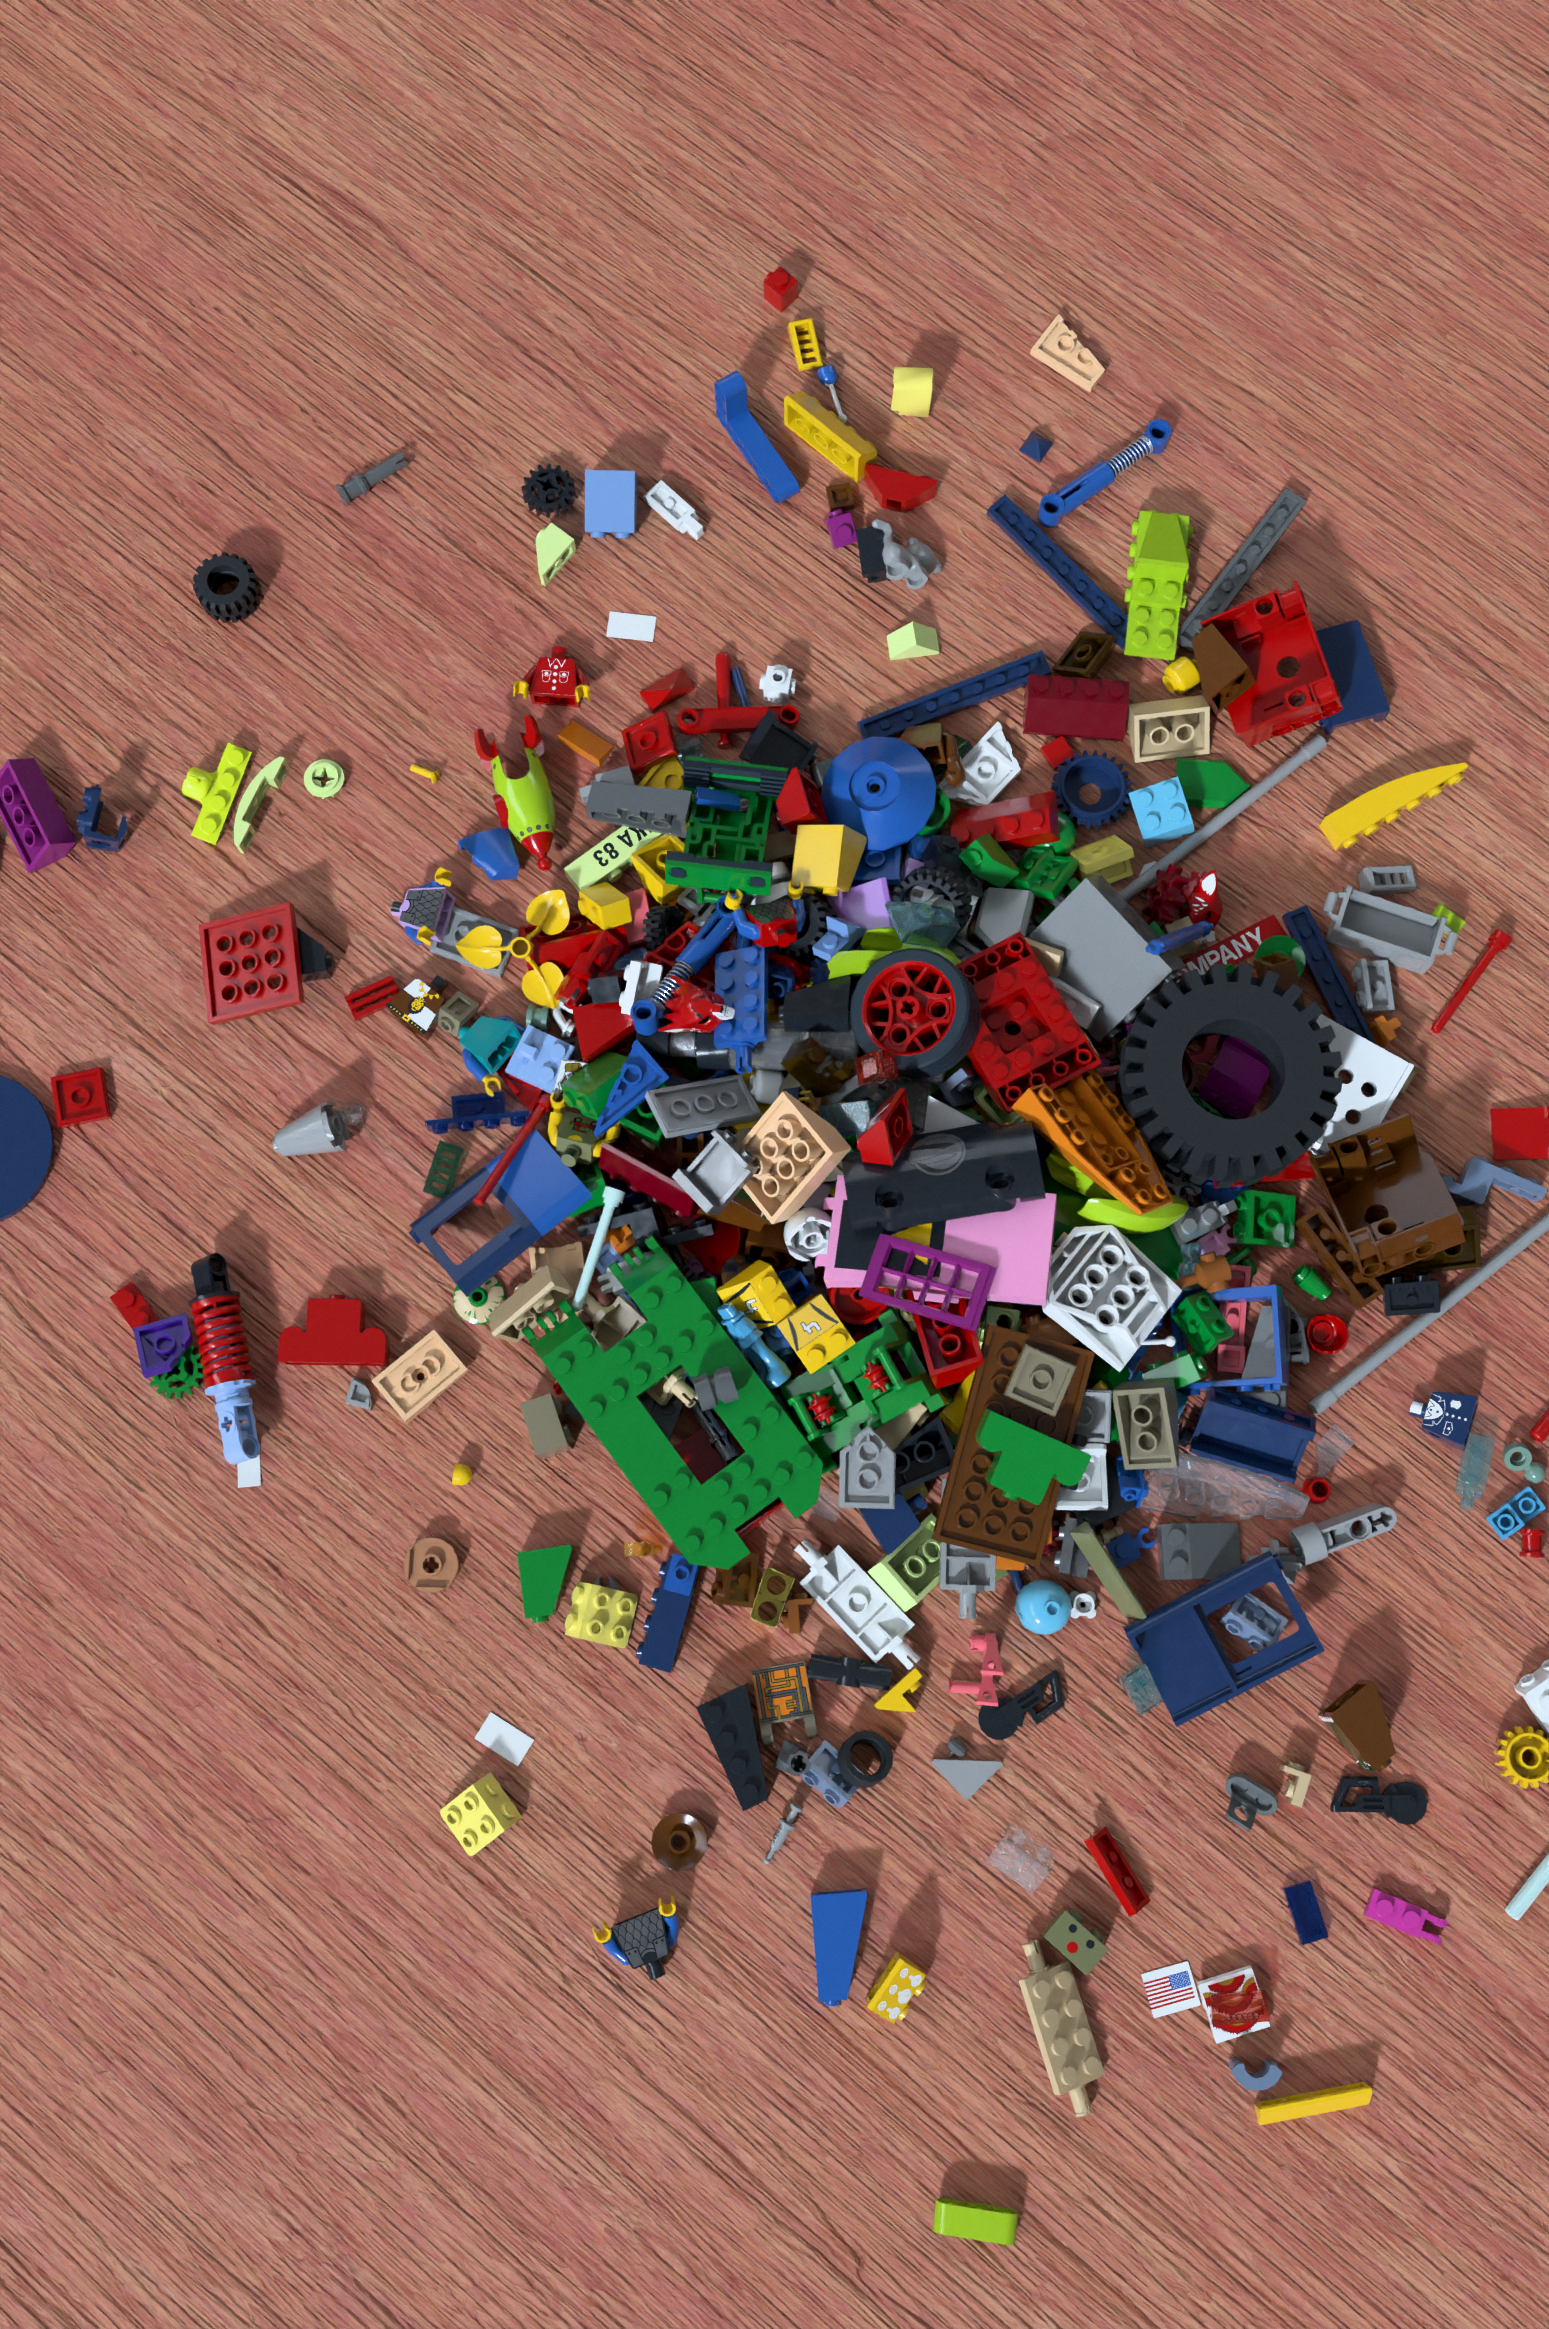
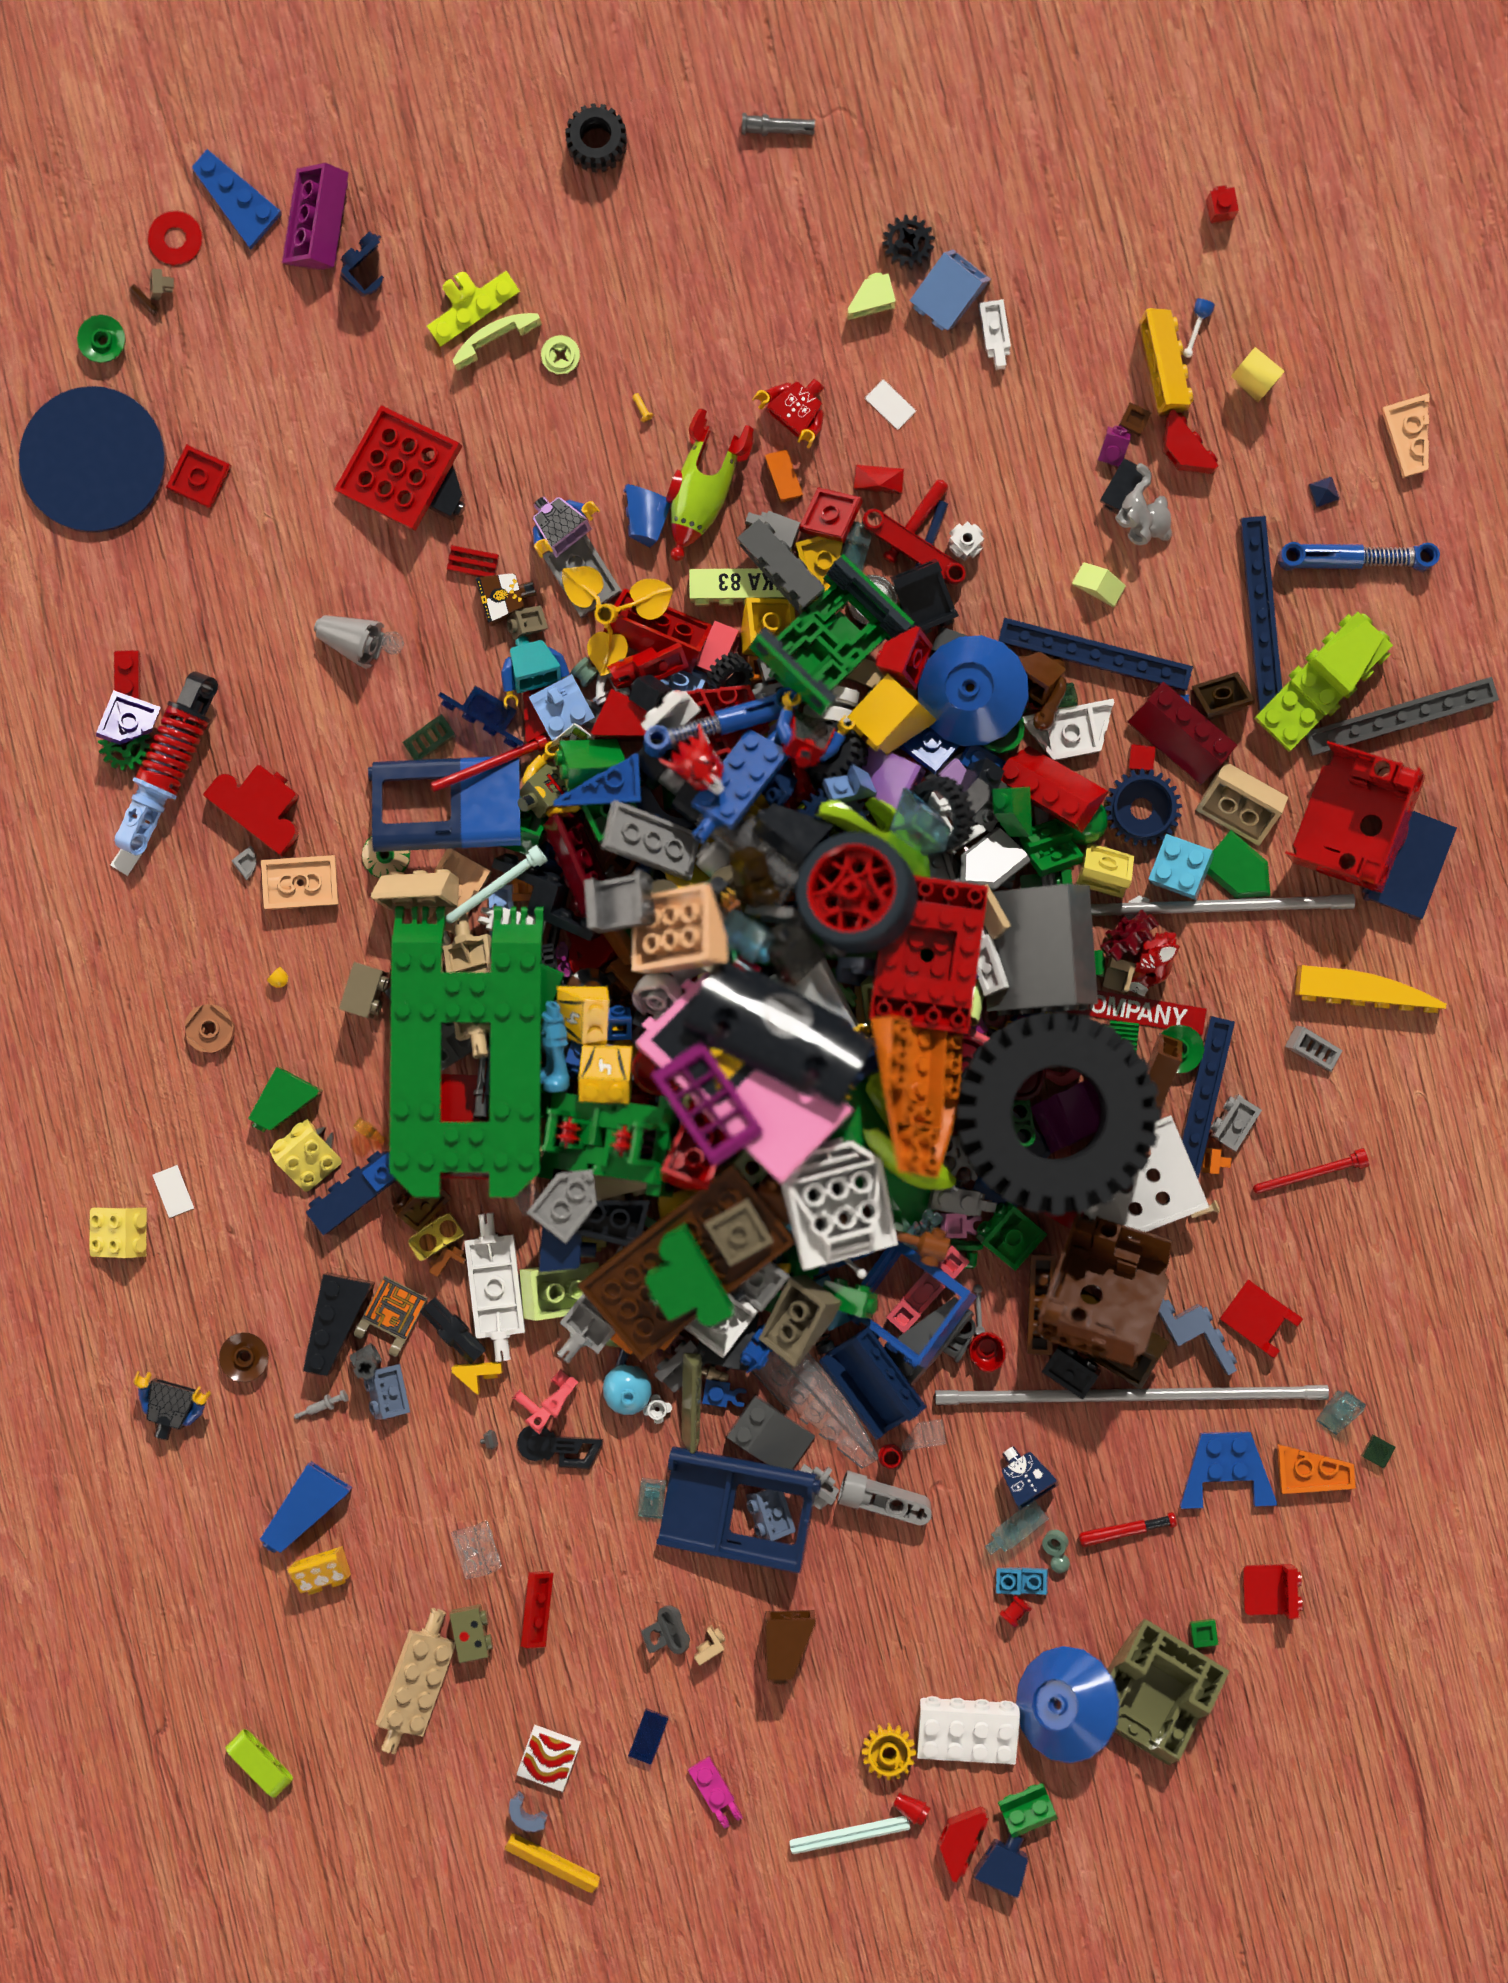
camera: 30 degrees right, 10 degrees up
(604, 905) = (697, 623): yellow brick -> none
(715, 1388) = (500, 1061): dark grey wheel -> none
(717, 799) = (843, 605): blue piece -> none
(750, 439) = (1100, 316): blue beam -> none
(800, 326) = (1221, 251): yellow slope -> none
(876, 1067) = (793, 915): clear red slope -> none
(880, 1746) = (398, 1399): black tyre -> none
(887, 1131) = (762, 970): red slope -> none
(966, 1775) = (482, 1464): light grey tile -> none
(1170, 1989) = (513, 1715): sticker -> none
(1179, 937) = (1108, 980): blue wheel -> none
(1181, 675) = (1286, 768): yellow head -> none
(1202, 1323) = (898, 1277): green bracket -> none
(1220, 669) = (1315, 787): reddish brown slope -> none
(1239, 2007) = (549, 1763): clear red tile -> none
(1310, 1280) = (1008, 1305): green cone -> none
(1386, 930) = (1278, 1086): light grey container -> none
(1401, 1801) = (776, 1715): black piece -> none
(1453, 922) = (1332, 1113): lime piece -> none

